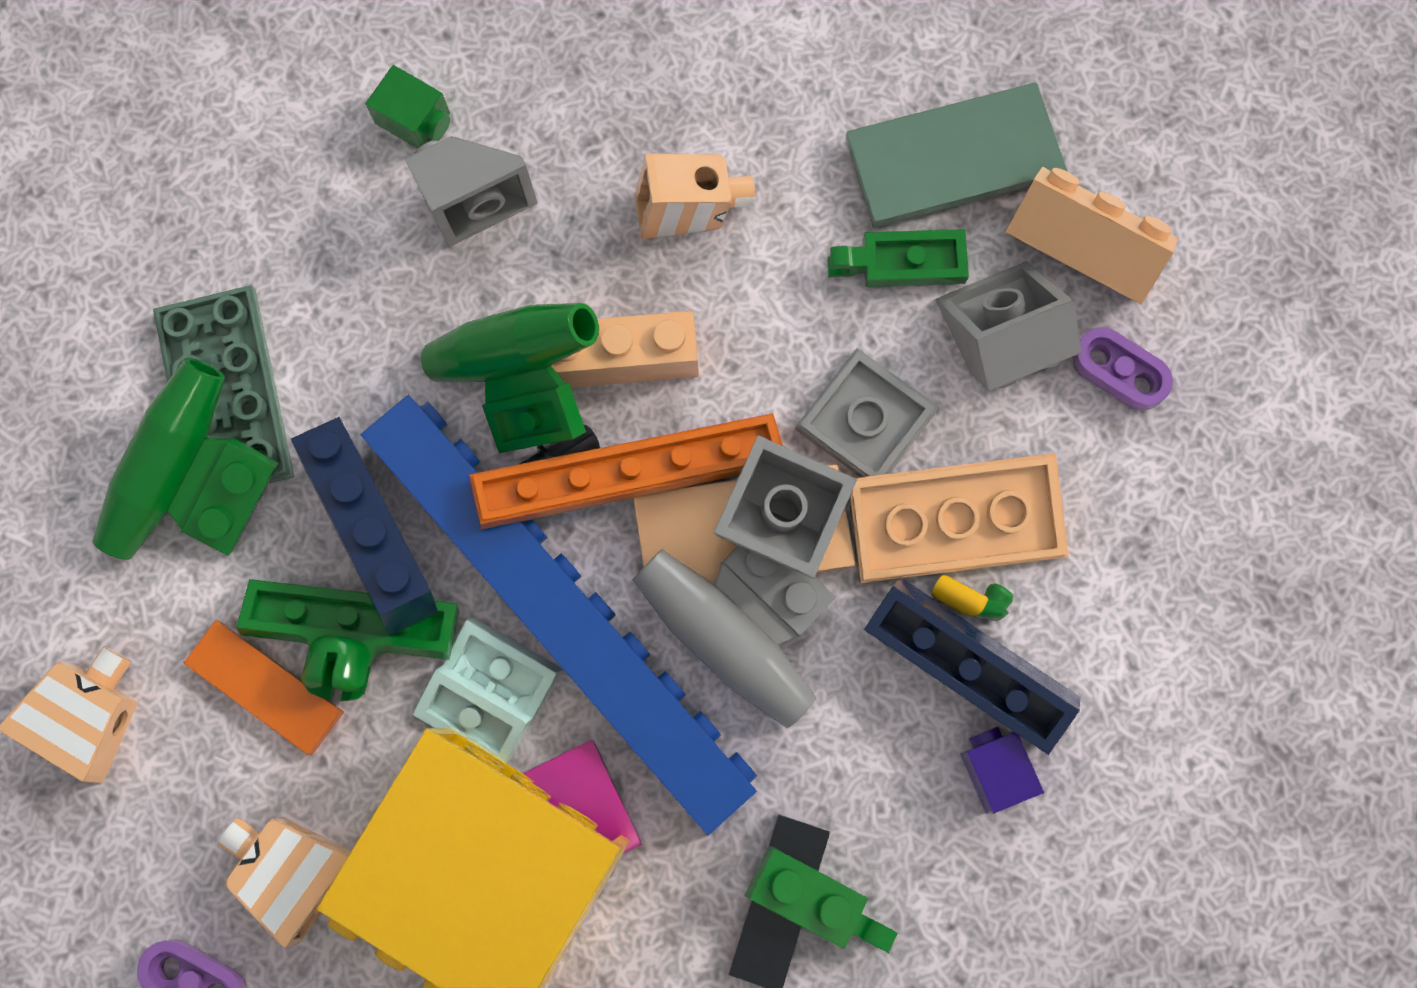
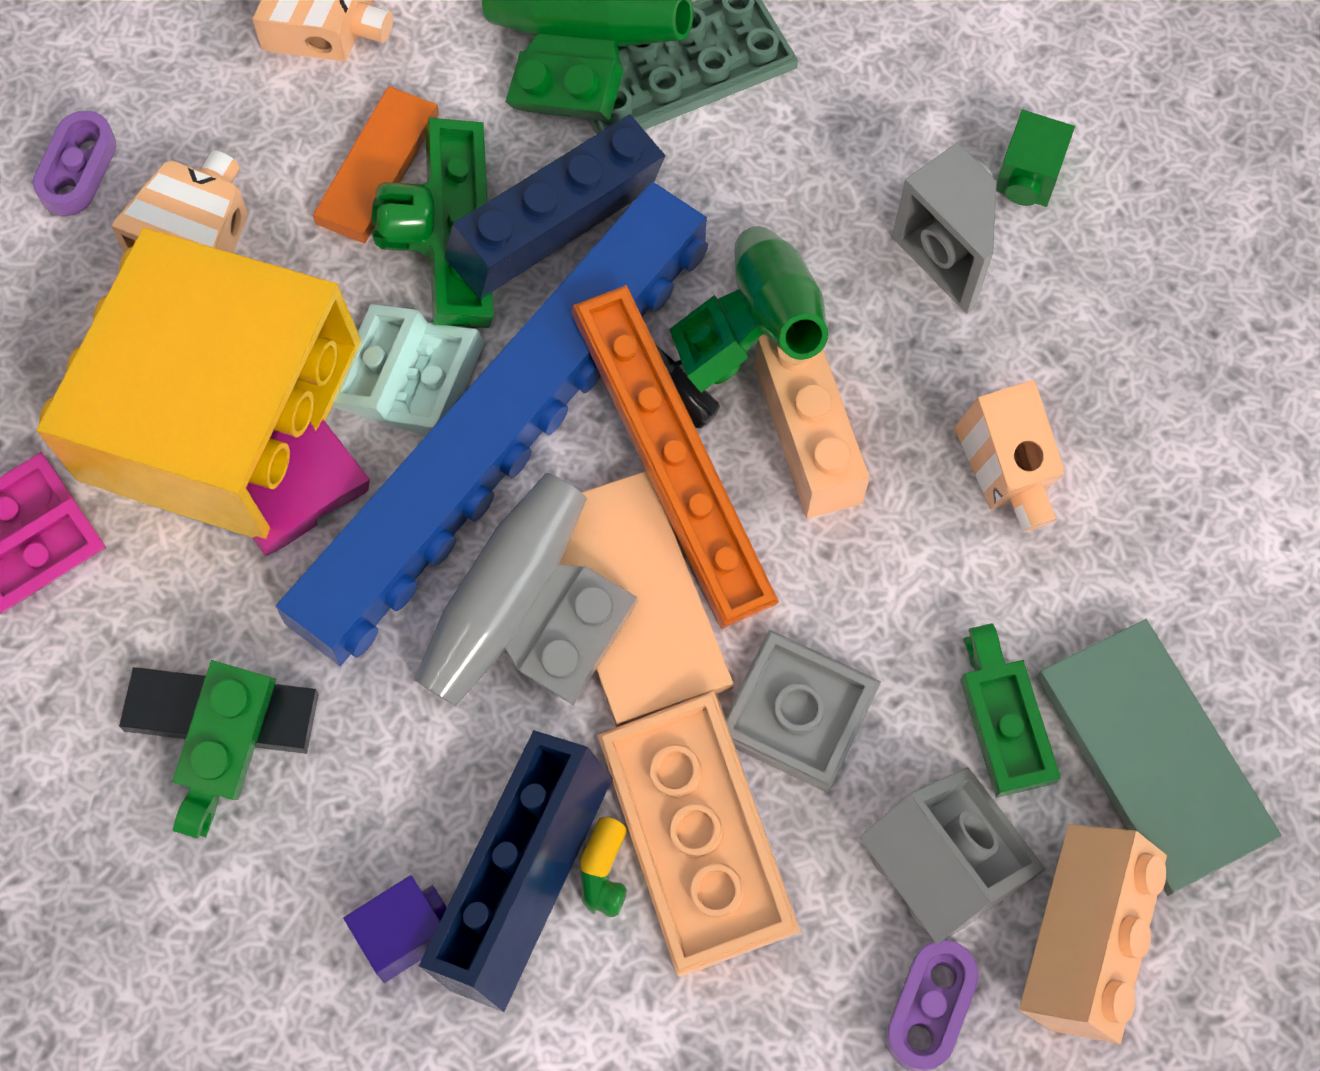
camera: 75 degrees right, 10 degrees down
(785, 507) = (653, 612): light grey slope -> none

